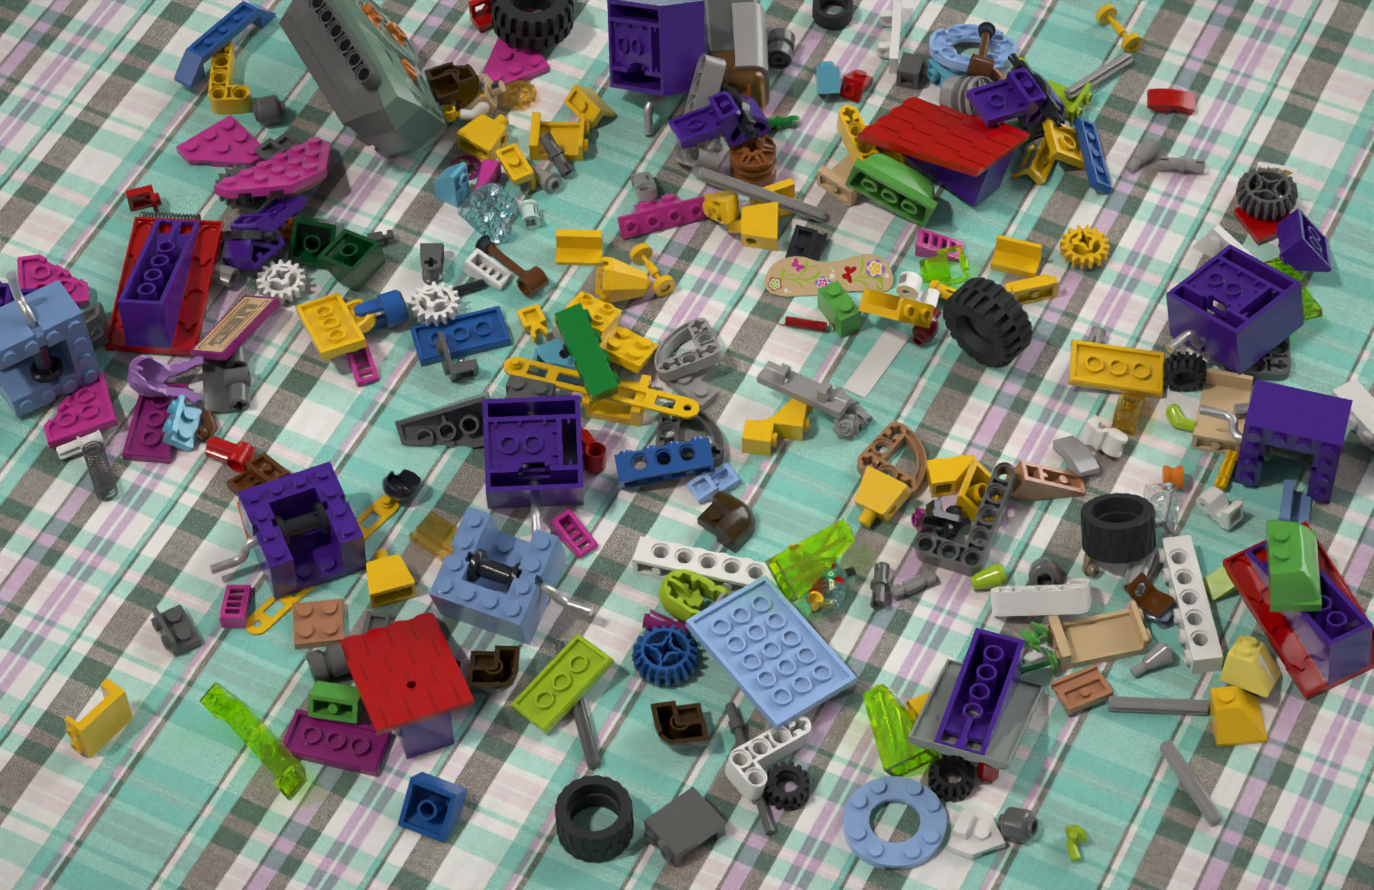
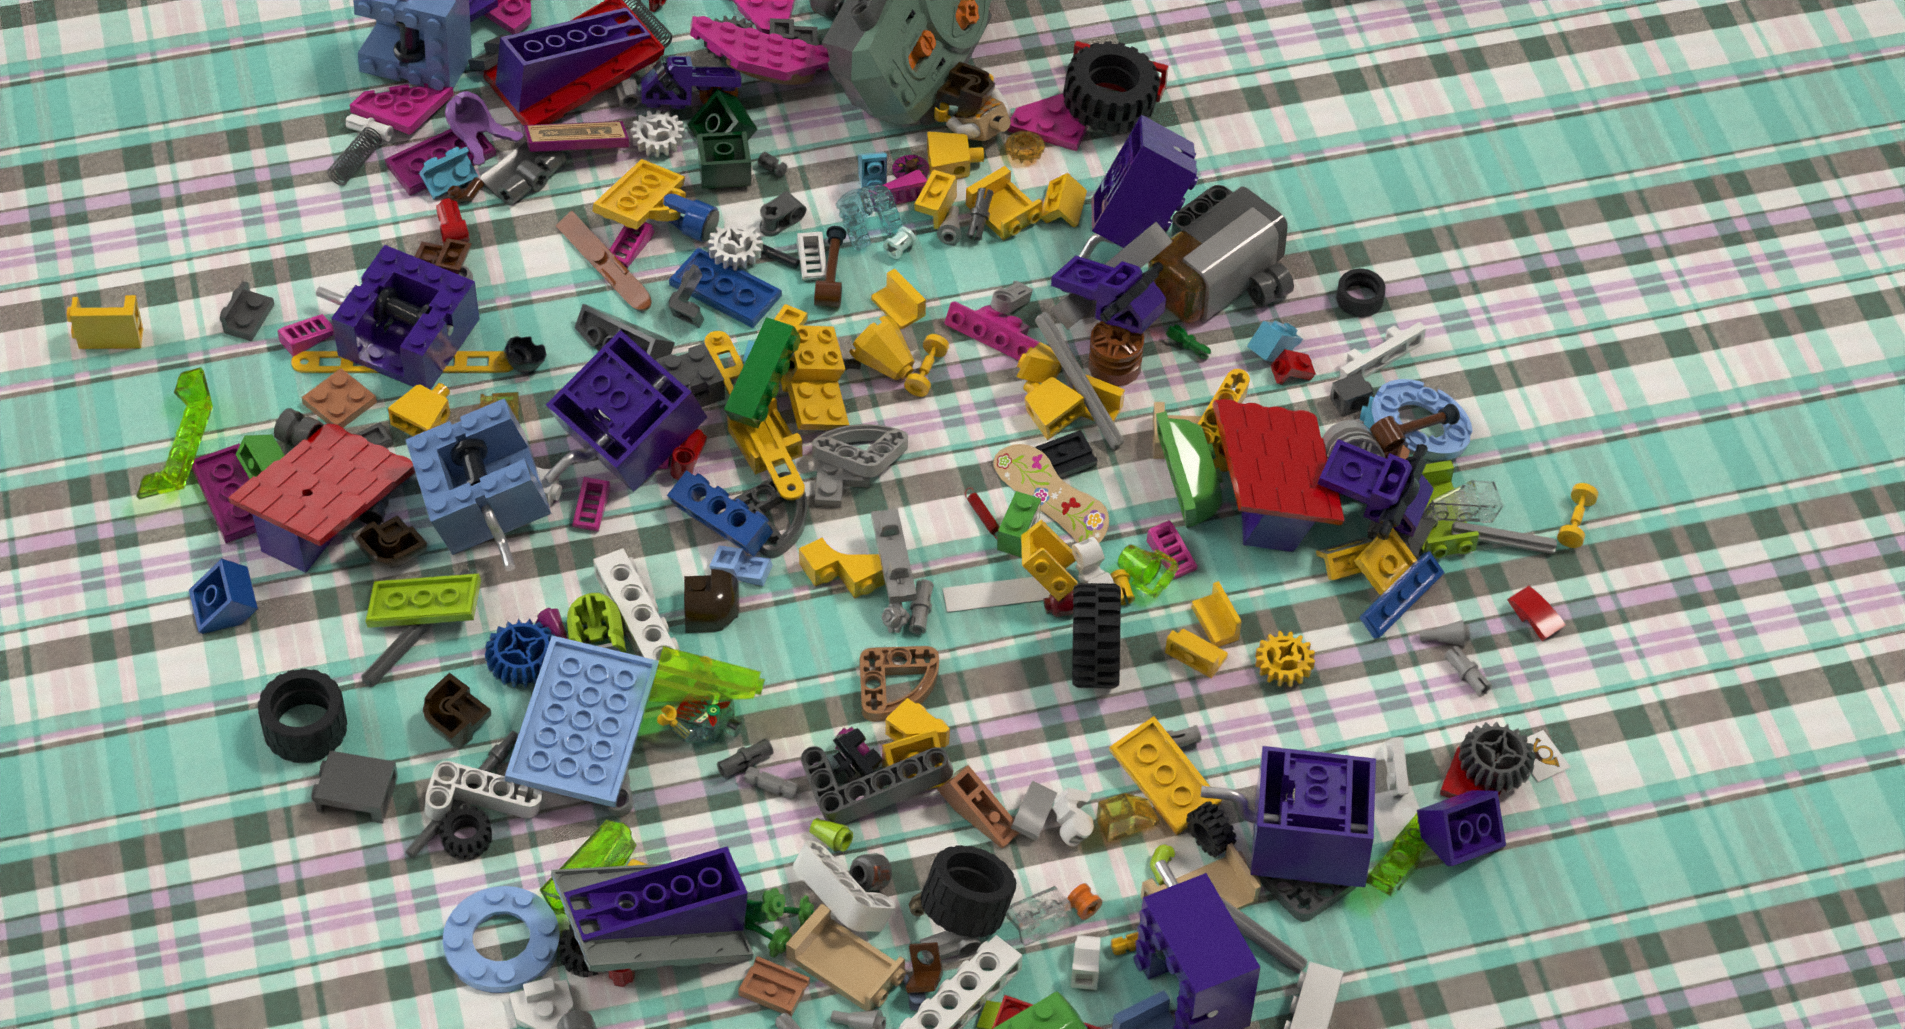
camera: 45 degrees right, 0 degrees up
(363, 388) = (605, 262): none -> piece
(879, 496) = (837, 690): yellow torso -> none
(1061, 69) = (1469, 502): none -> clear slope

